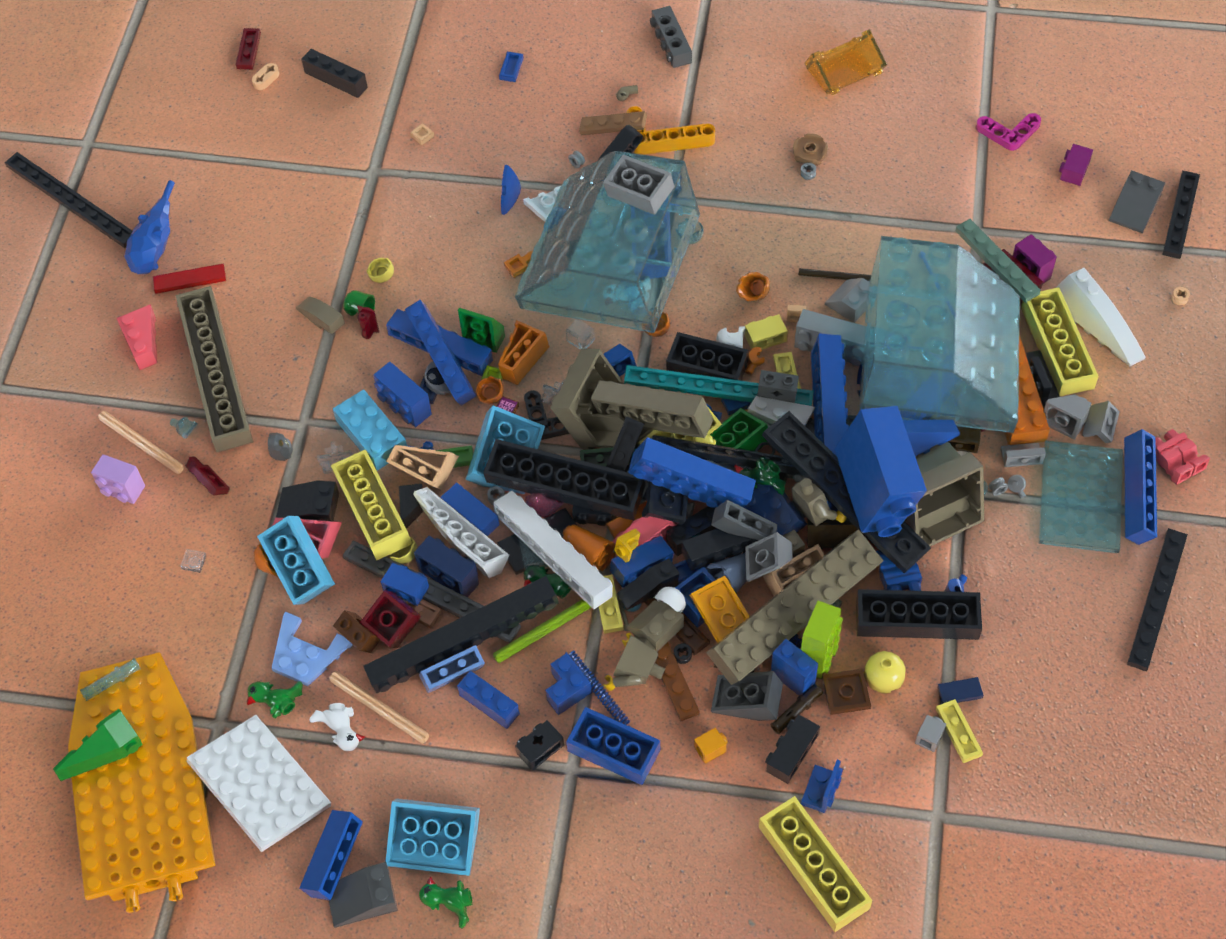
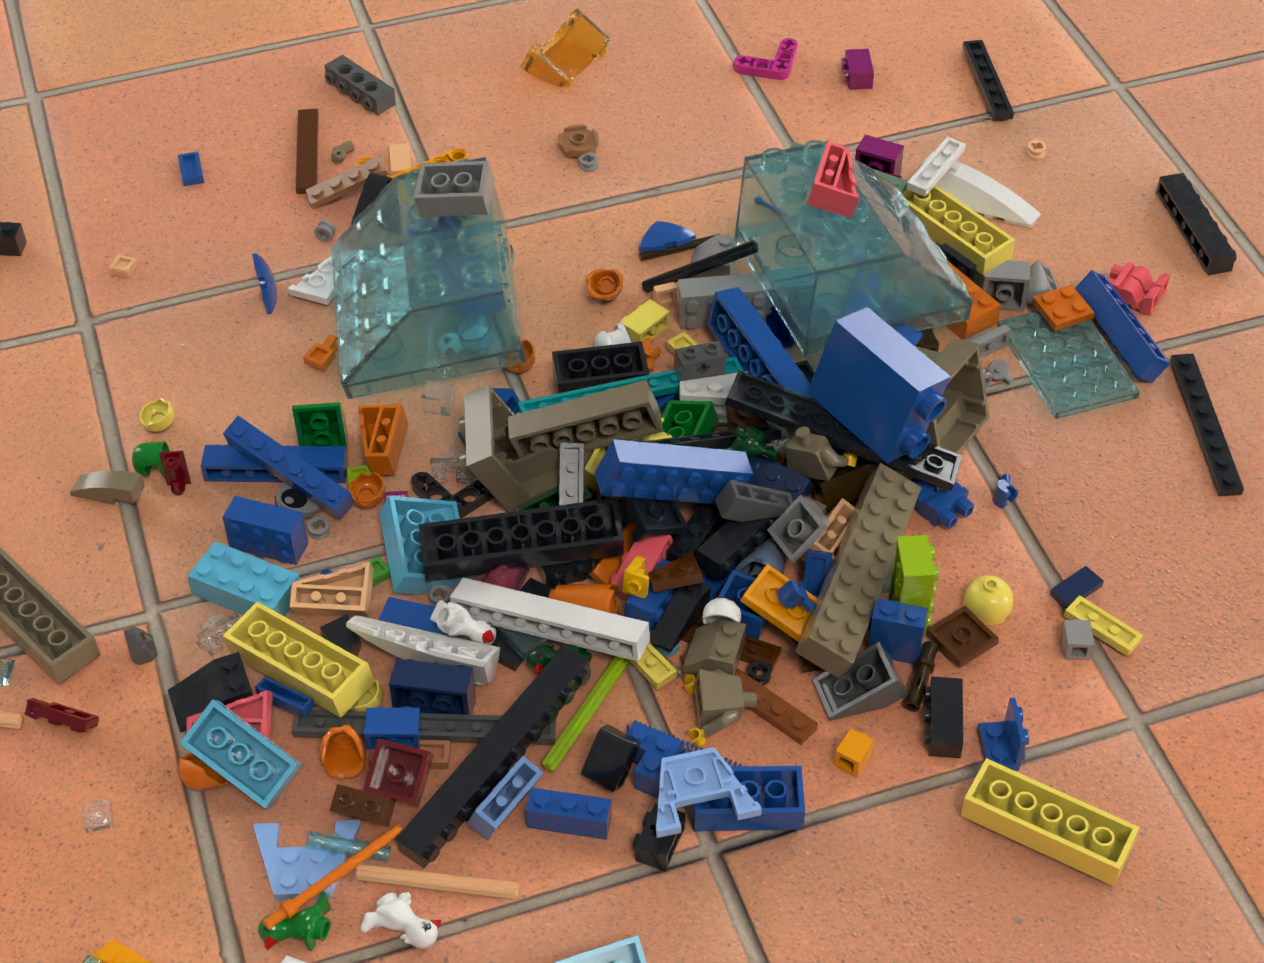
camera: 30 degrees left, 10 degrees down
(271, 683) = (290, 907): none -> orange bar
(326, 652) = (341, 845): none -> clear light blue pin
(350, 527) = (286, 697): none -> blue piece
(365, 586) = (343, 752): none -> orange hair
(444, 410) = (314, 523): none -> light grey bush
(488, 523) = (456, 621): none -> white animal
(535, 673) = (610, 758): none -> black piece
(577, 717) = (698, 779): none -> light blue wing
(603, 81) = (307, 150): none -> reddish brown tile
(658, 553) = (676, 574): none -> reddish brown wing
(667, 115) = (399, 158): none -> light nougat tile
(728, 609) = (792, 595): none -> blue piece
(766, 591) = (816, 570): none -> blue tile
(826, 261) = (665, 235): none -> blue brick
(829, 303) = (702, 265): none -> black axle
(918, 614) = (992, 526): black brick -> none
(925, 289) = (834, 182): none -> coral wedge
(1072, 285) = (936, 166): none -> white plate
(1102, 451) = (1063, 307): none -> orange plate
(1137, 201) = (939, 81): dark grey slope -> none

